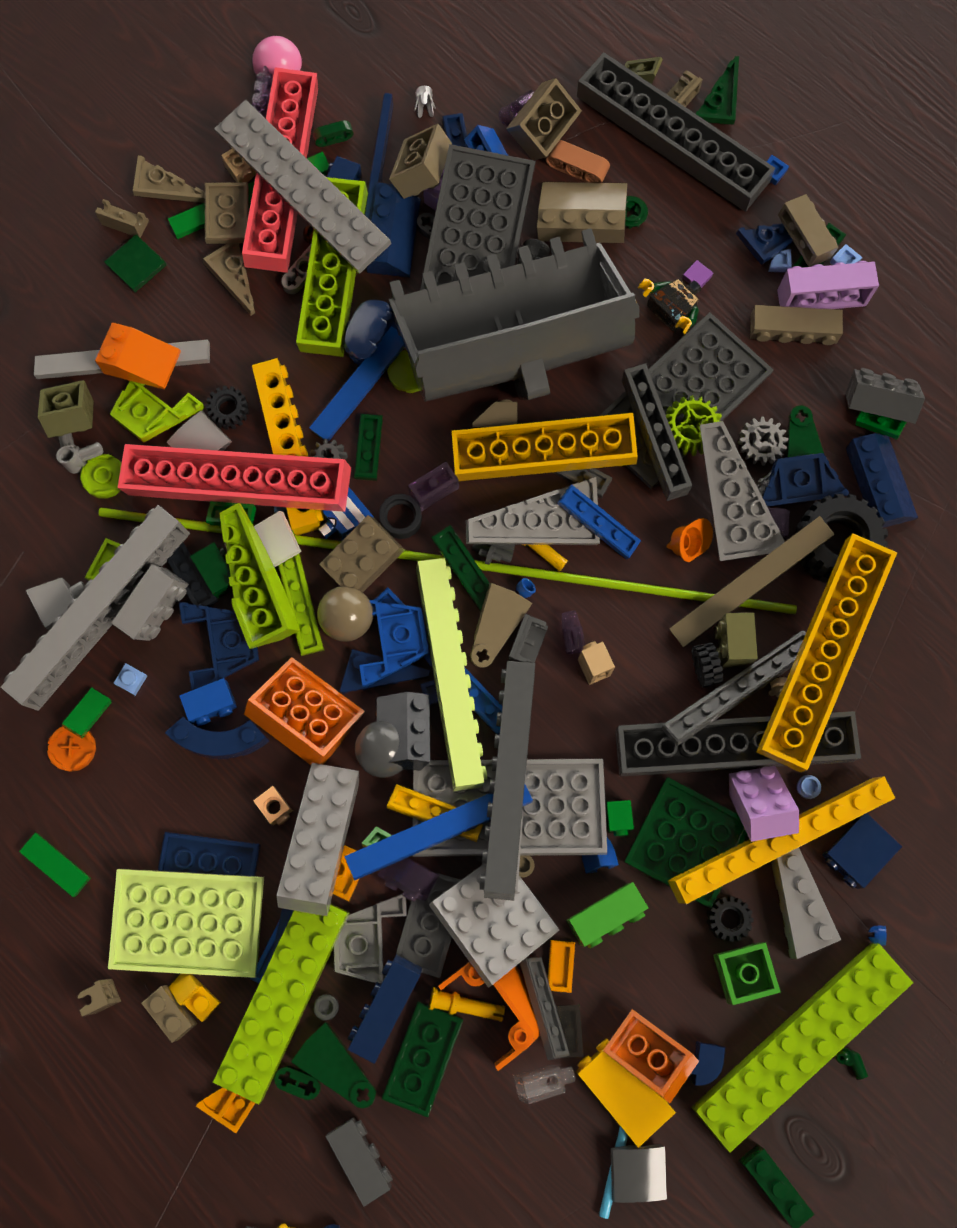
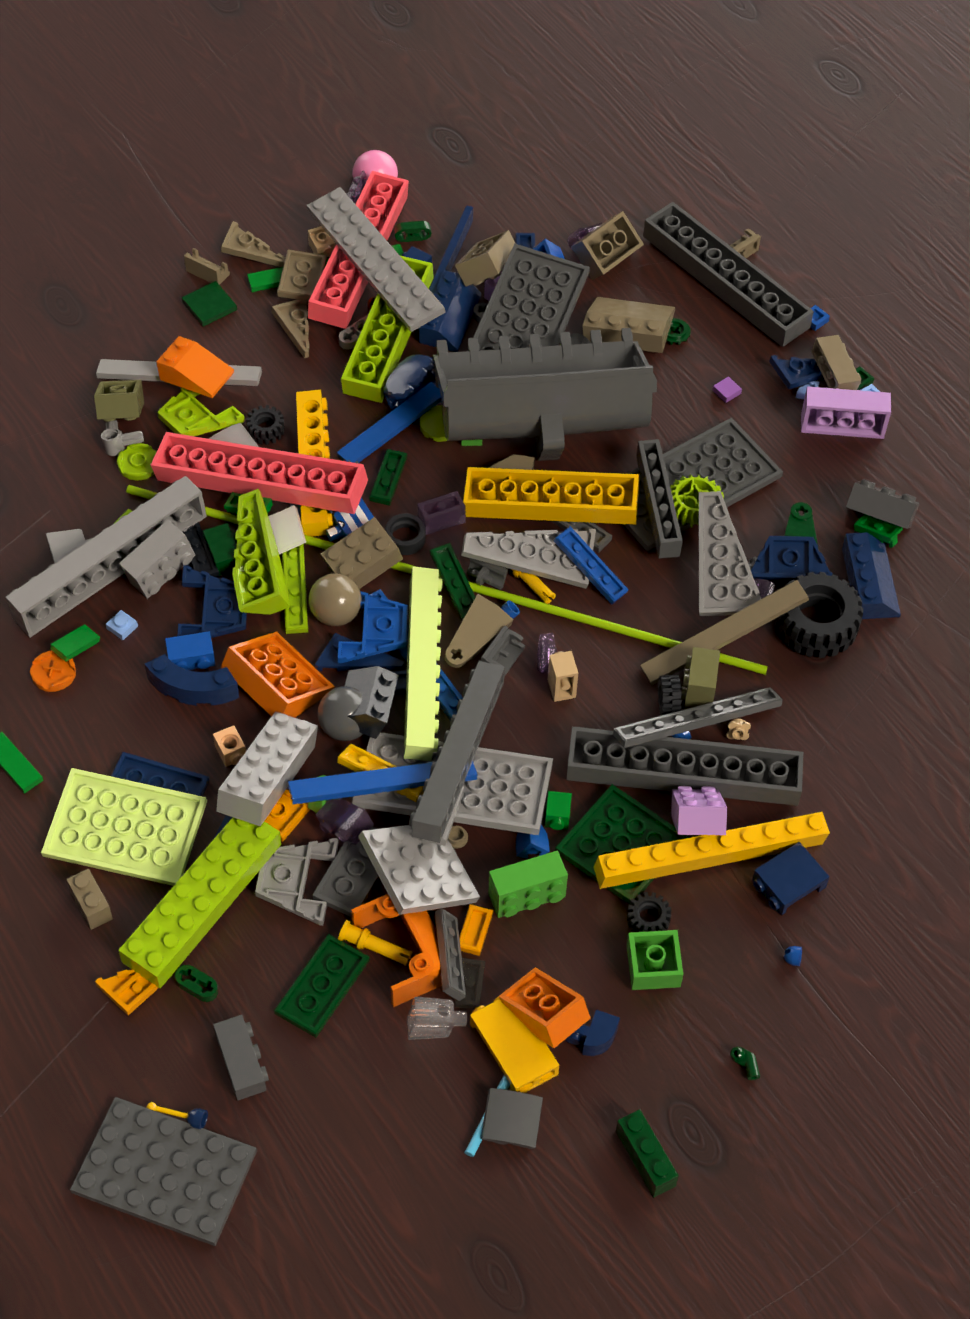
camera: 10 degrees right, 20 degrees down
(102, 995) = (28, 873): dark tan hinge -> none
(194, 995) = (117, 893): yellow slope -> none
(326, 1007) = (239, 924): dark grey tile -> none
(334, 1066) = (234, 973): dark green piece -> none
(384, 1009) = (296, 924): dark blue brick -> none
(424, 97) = (503, 215): flat silver piece -> none
(578, 162) = (632, 285): nougat beam -> none
(645, 68) = (712, 221): olive slope -> none
(673, 302) = (697, 404): torso -> none
(691, 539) = (677, 594): orange piece -> none
(721, 102) = (777, 258): dark green wing -> none
(762, 431) = (760, 526): light grey gear -> none
(796, 324) = (812, 440): dark tan brick -> none
(801, 1046) = (696, 1034): lime brick -> none
(803, 909) = (723, 919): light grey wedge -> none
(808, 786) = (749, 817): light blue plate -> none
(826, 653) = (780, 692): yellow brick -> none

